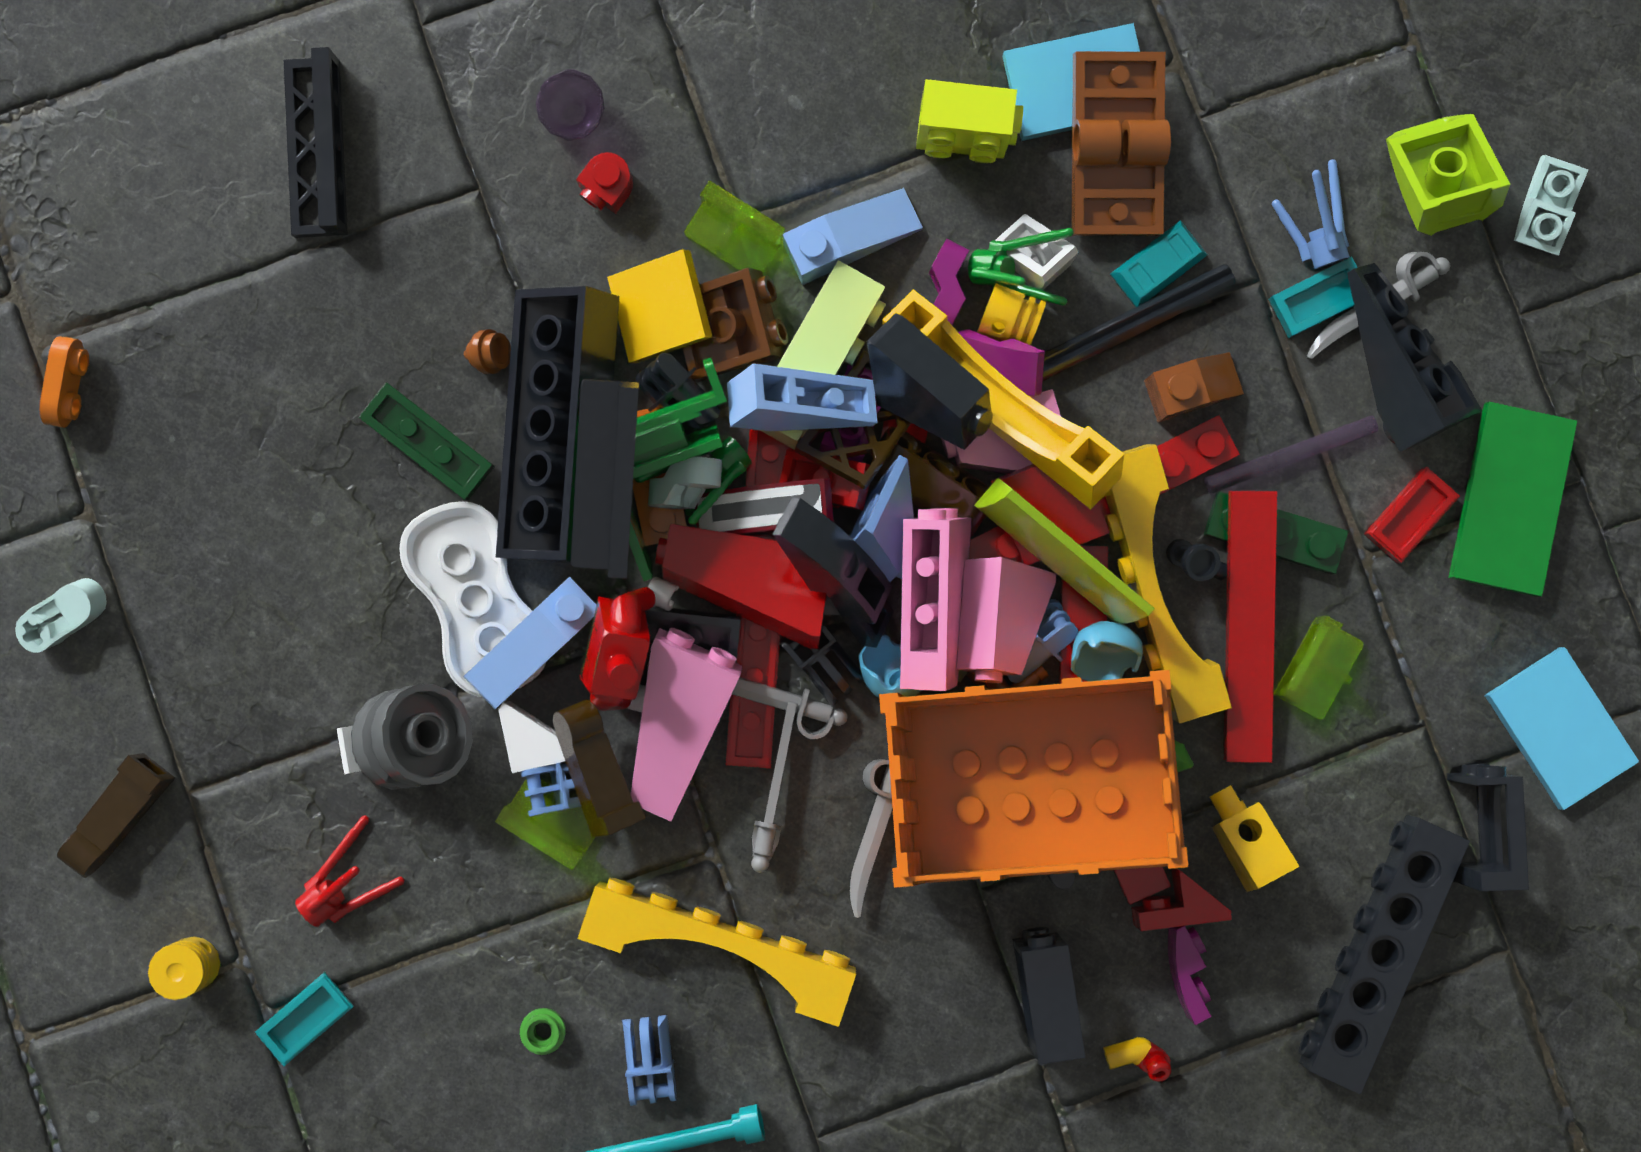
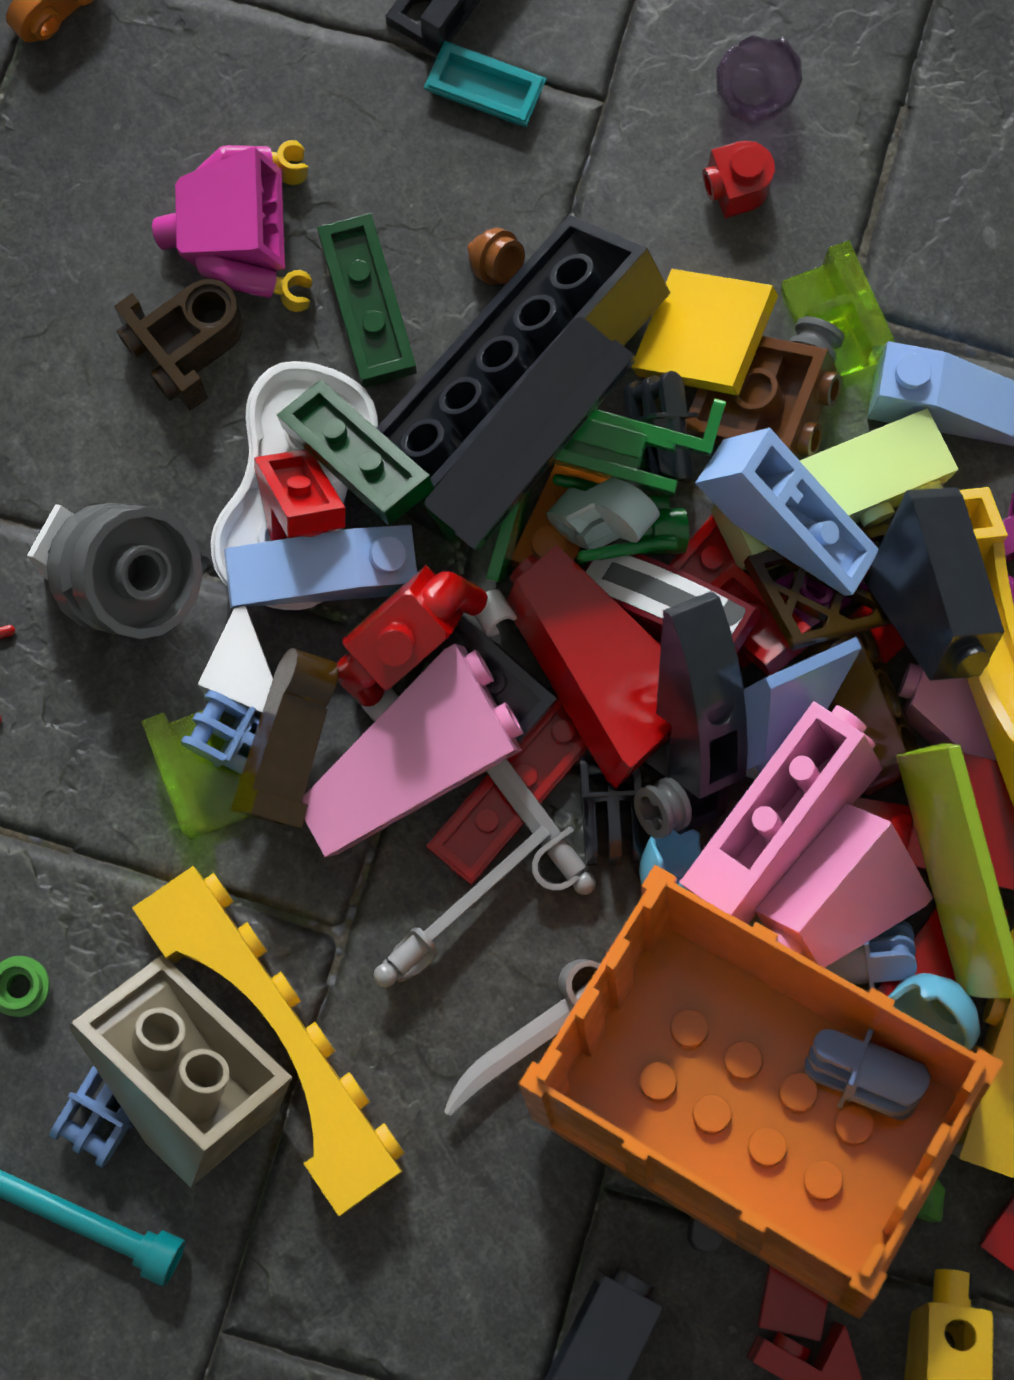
camera: 35 degrees right, 10 degrees down
(300, 452) = (233, 220): none -> dark pink torso
(325, 558) = (177, 339): none -> dark brown pin
(392, 235) = (485, 84): none -> teal tile
(483, 609) = (297, 496): none -> red slope
(499, 556) = (355, 452): none -> plate
(679, 1011) = (180, 1069): none -> dark tan slope
(734, 260) = (818, 333): none -> dark grey bush
(855, 642) = (662, 808): none -> dark grey bush
(1093, 719) = (867, 1073): none -> medium blue arm

